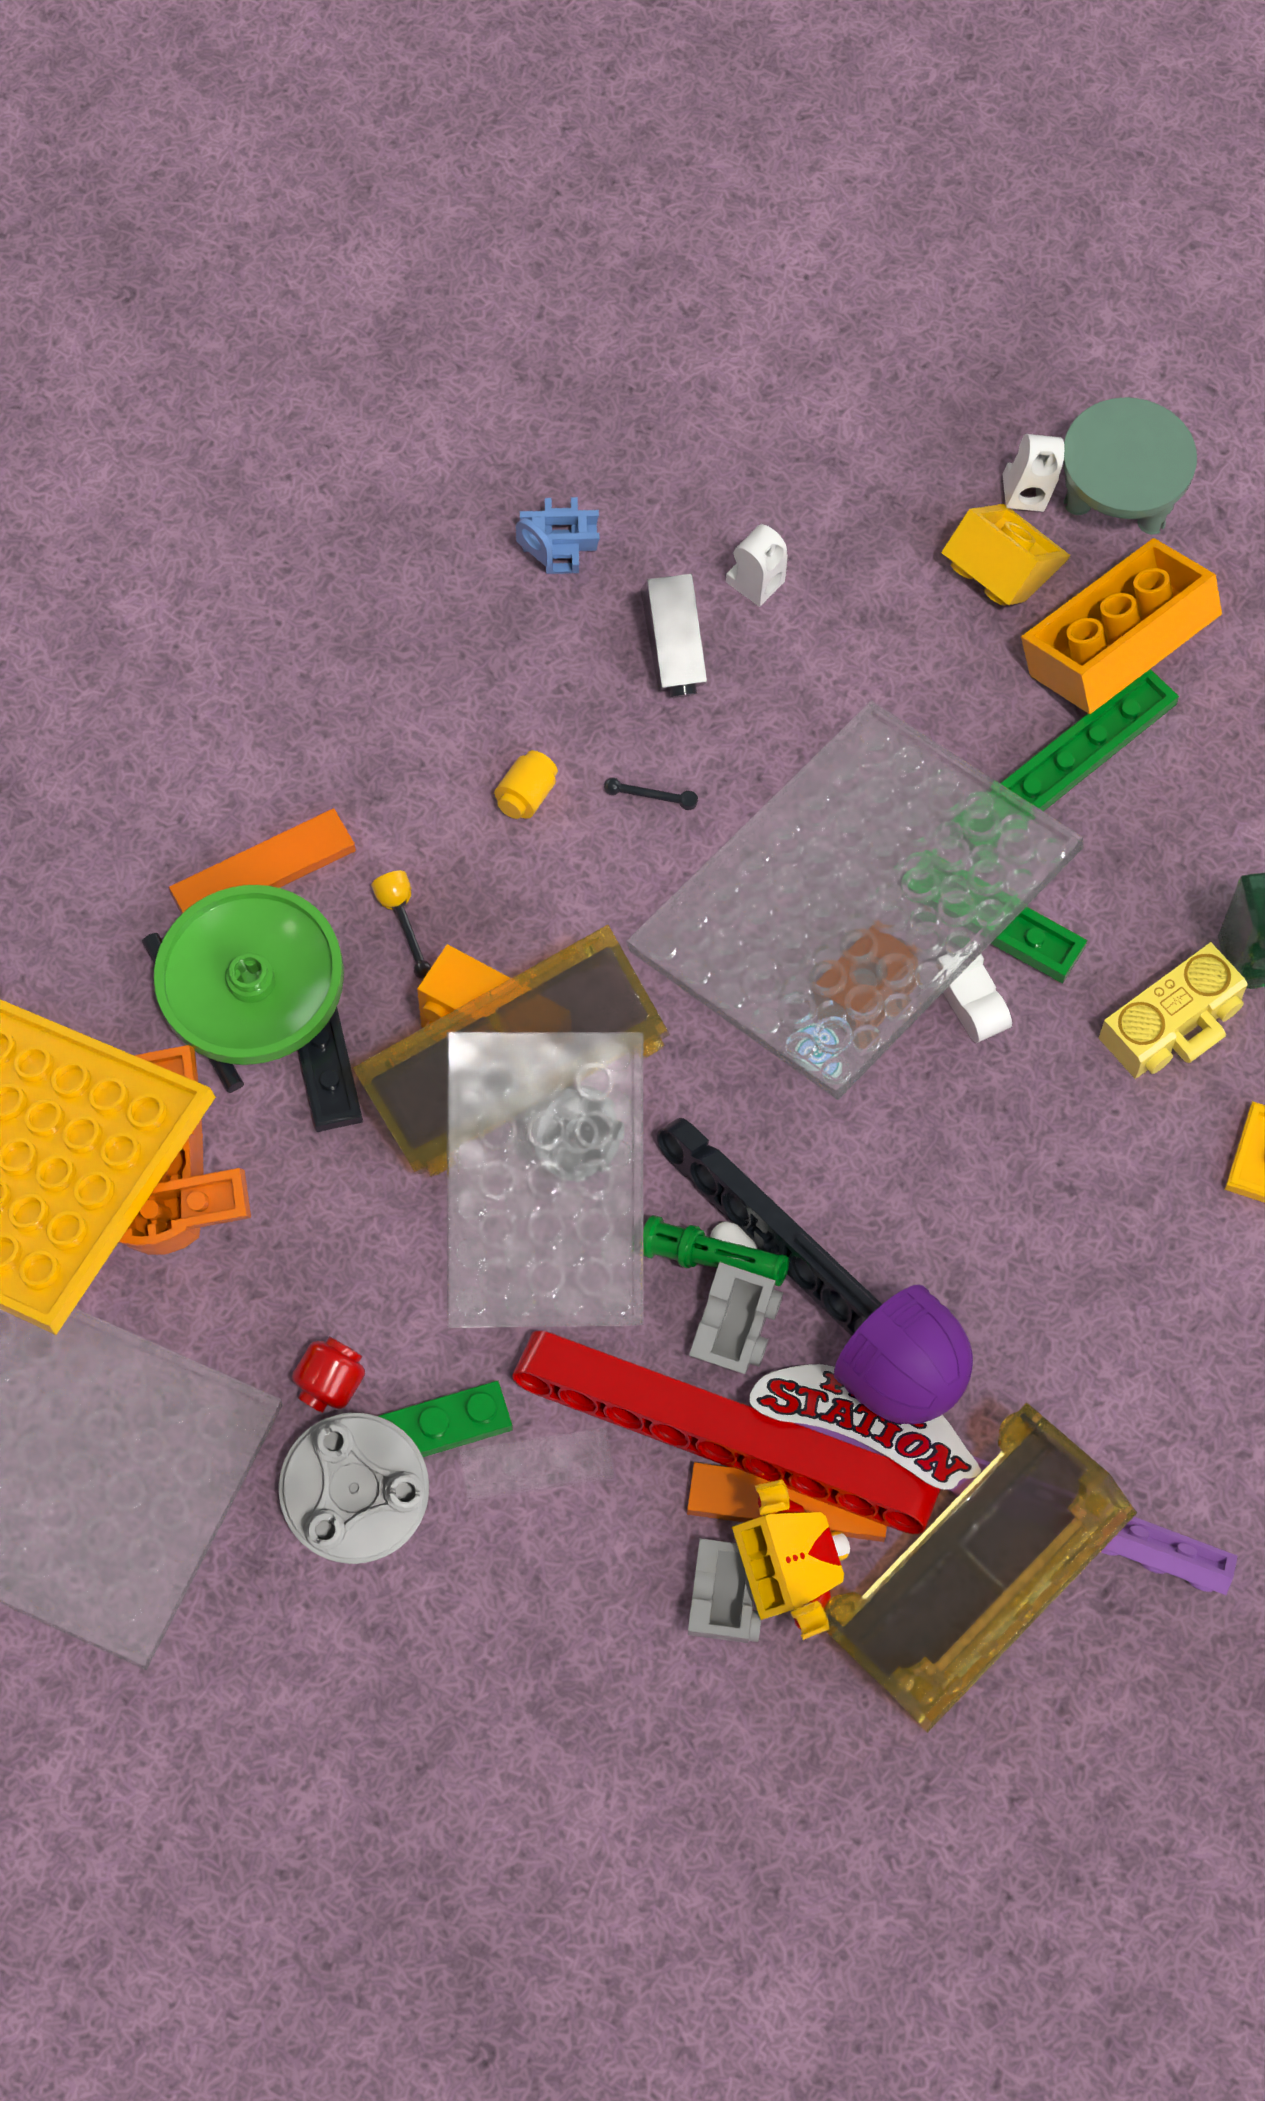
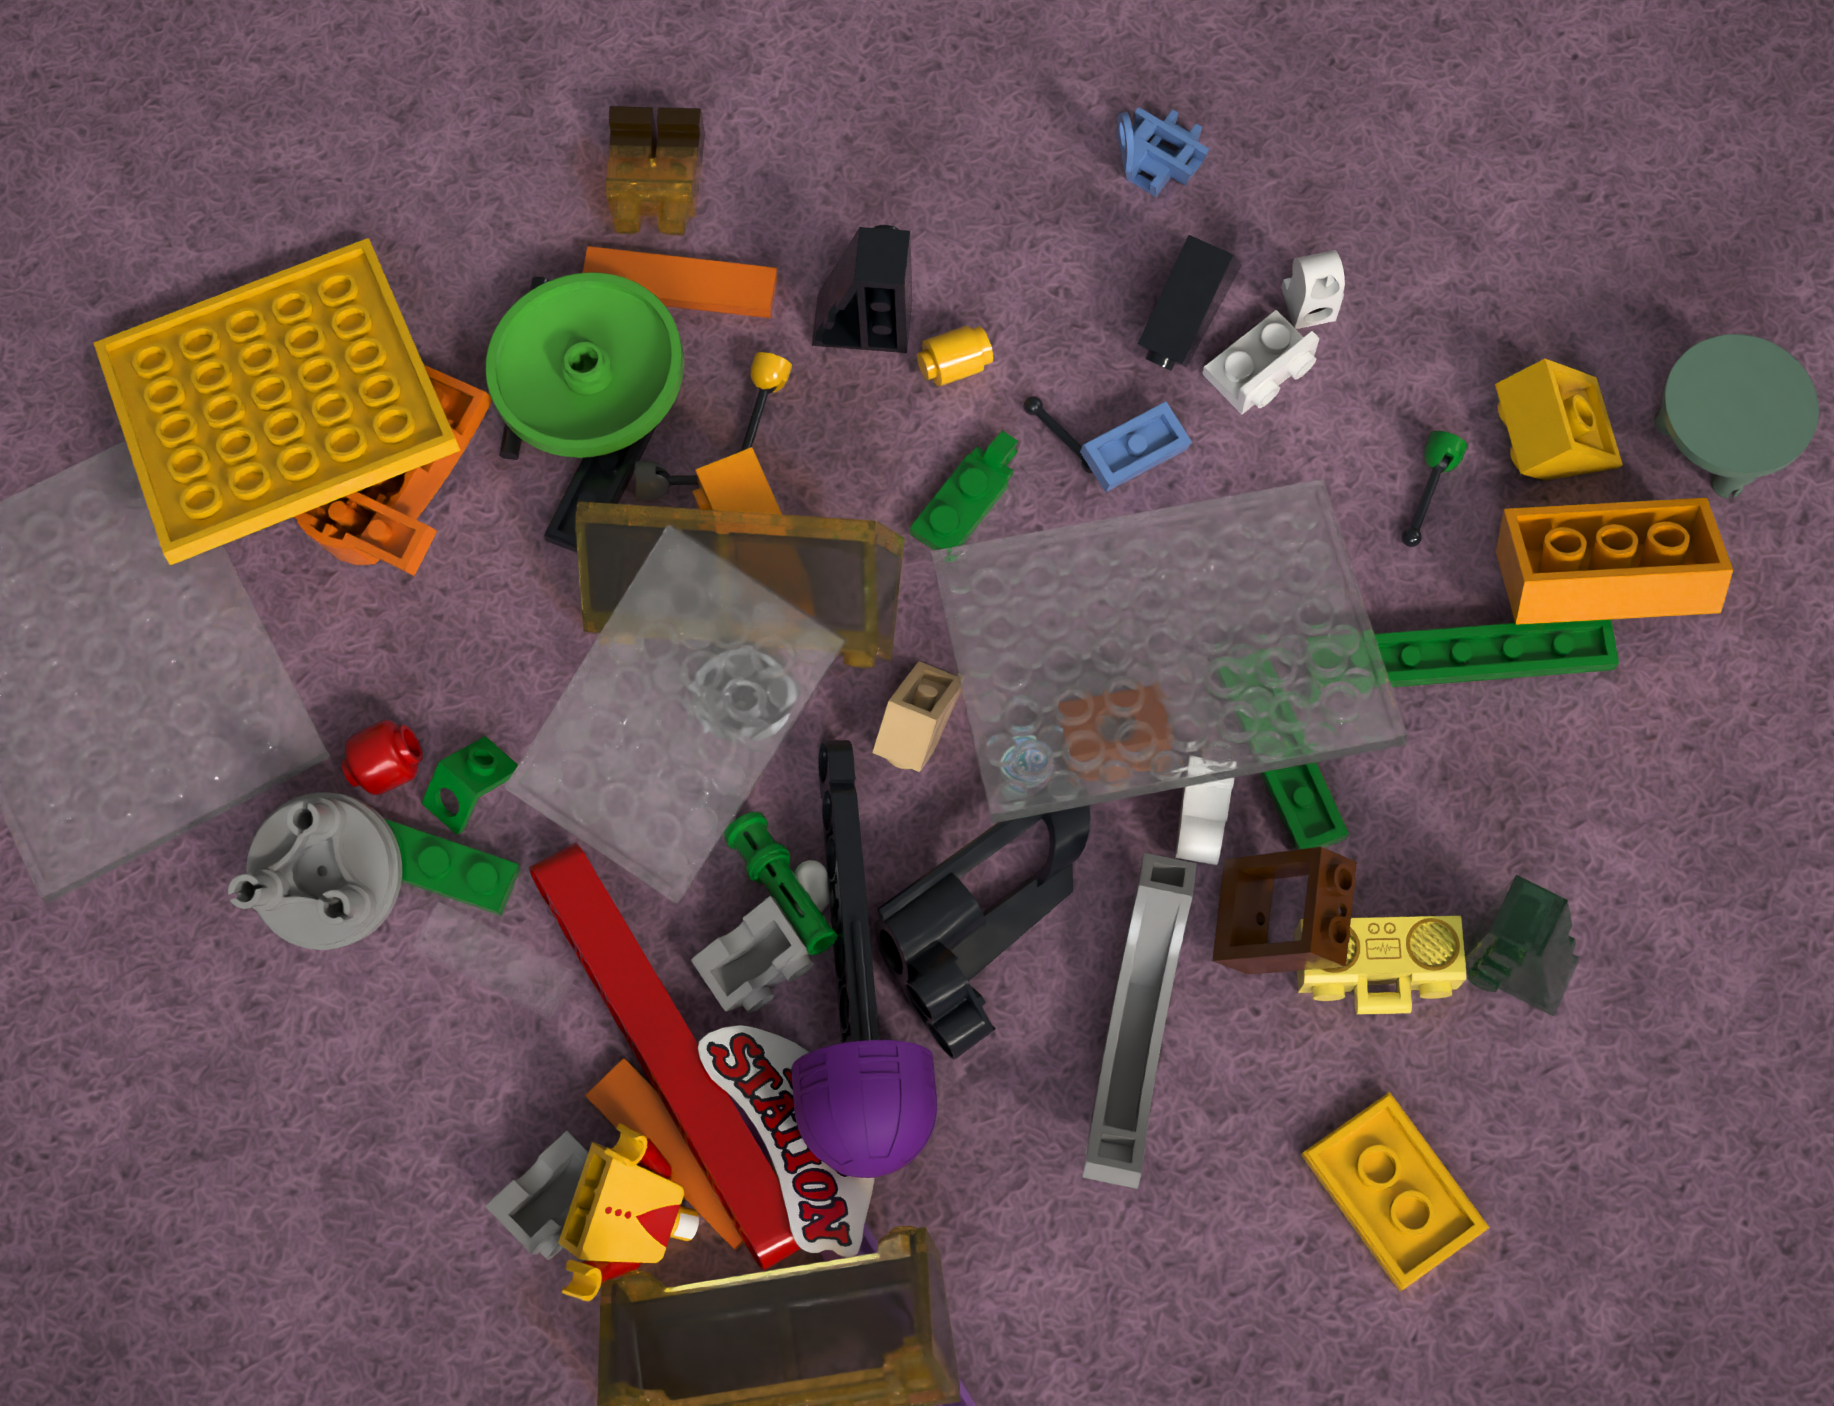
camera: 40 degrees right, 5 degrees up
(182, 808) = (651, 186): none -> clear yellow hips
(368, 1030) = (654, 480): none -> dark grey hinge
(409, 1337) = (469, 776): none -> green bracket
(433, 778) = (868, 294): none -> black wedge
(618, 882) = (966, 495): none -> green hinge
(714, 1068) = (917, 717): none -> tan slope
(716, 765) = (1135, 446): none -> medium blue plate
(756, 645) = (1260, 361): none -> white bracket
(860, 1207) = (941, 939): none -> black panel
(941, 628) = (1442, 454): none -> hinge
(1036, 466) = (1641, 360): white leg -> none
(1040, 1168) = (1138, 1021): none -> light grey arch
(1058, 1044) = (1247, 908): none -> reddish brown window

